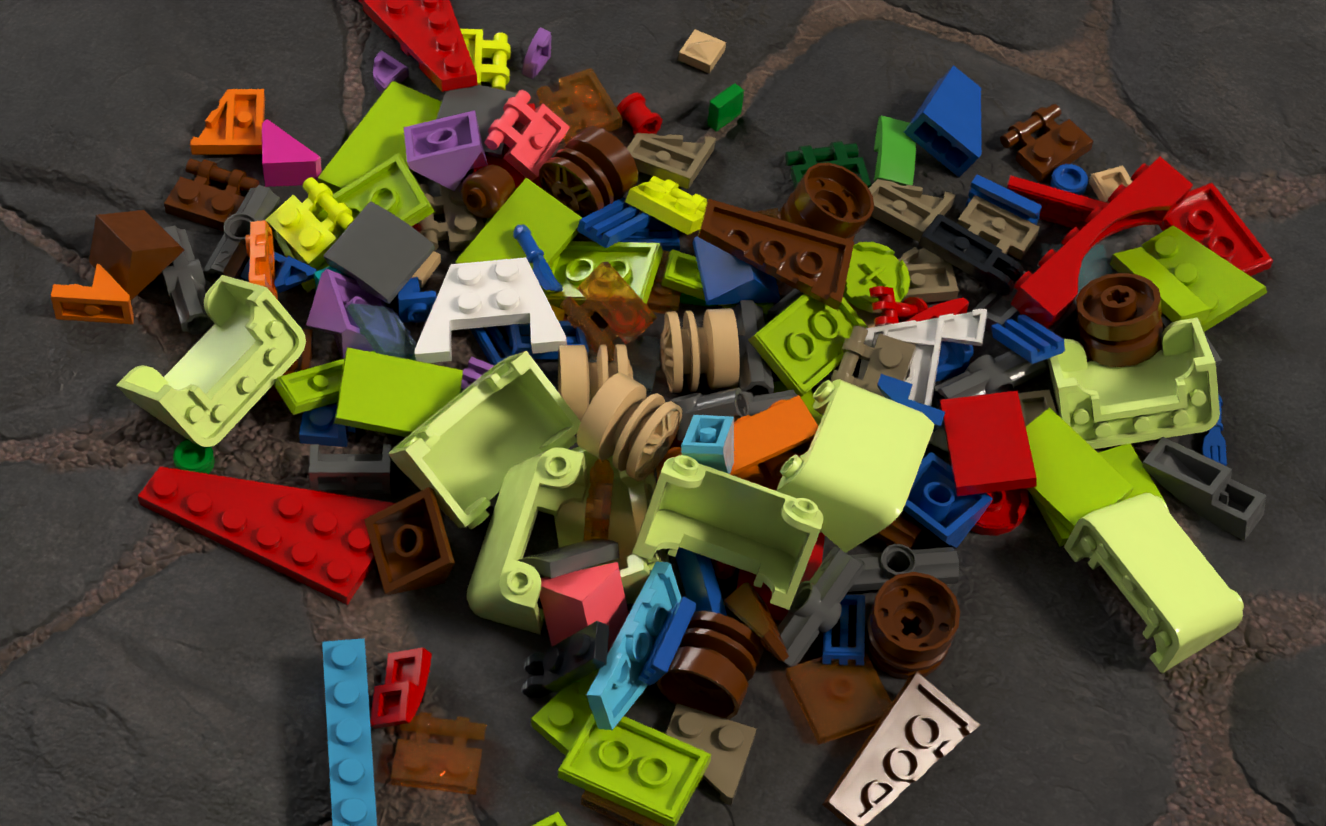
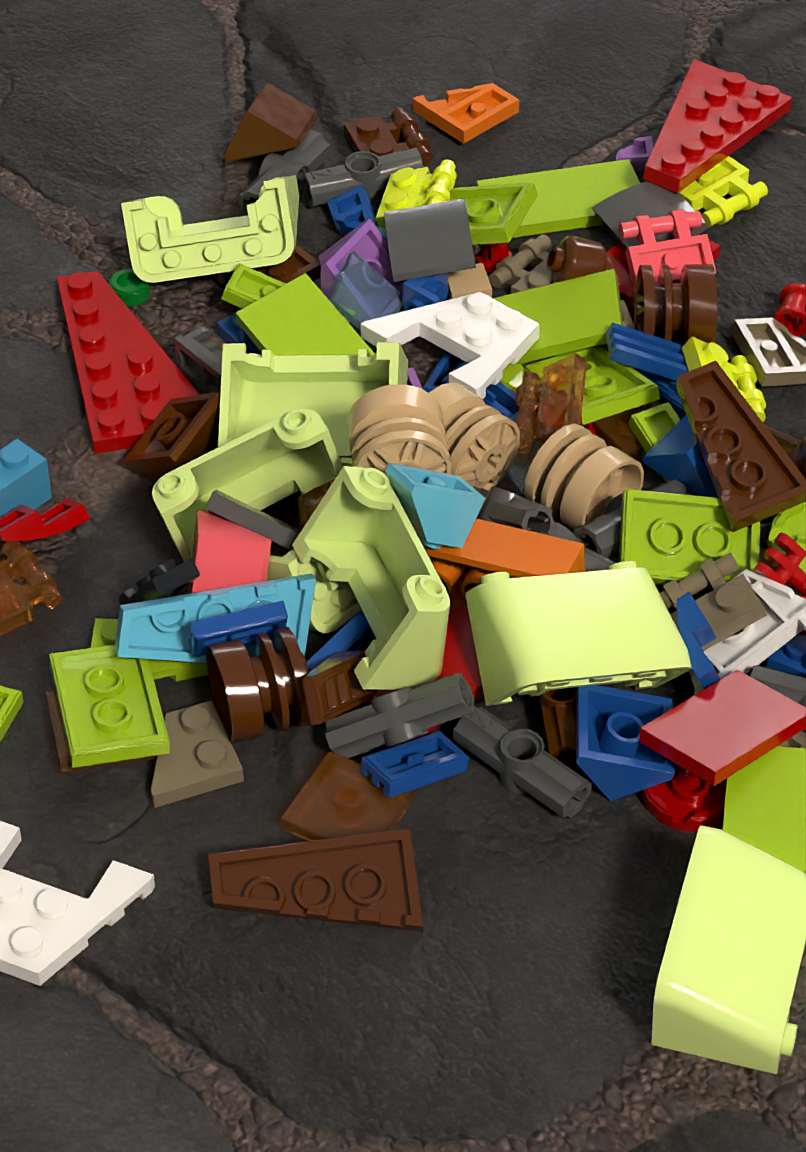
camera: 55 degrees right, 10 degrees down
(100, 303) = (204, 145): orange slope -> none
(261, 254) = (336, 189): orange wing -> none
(286, 159) = (466, 148): dark pink slope -> none
(445, 148) = (584, 213): medium lavender slope -> none
(535, 255) = (542, 344): blue piece -> none
(537, 53) = (773, 215): medium lavender tile -> none
(587, 100) = (765, 274): clear orange plate -> none
(916, 606) = (459, 797): reddish brown wheel -> none

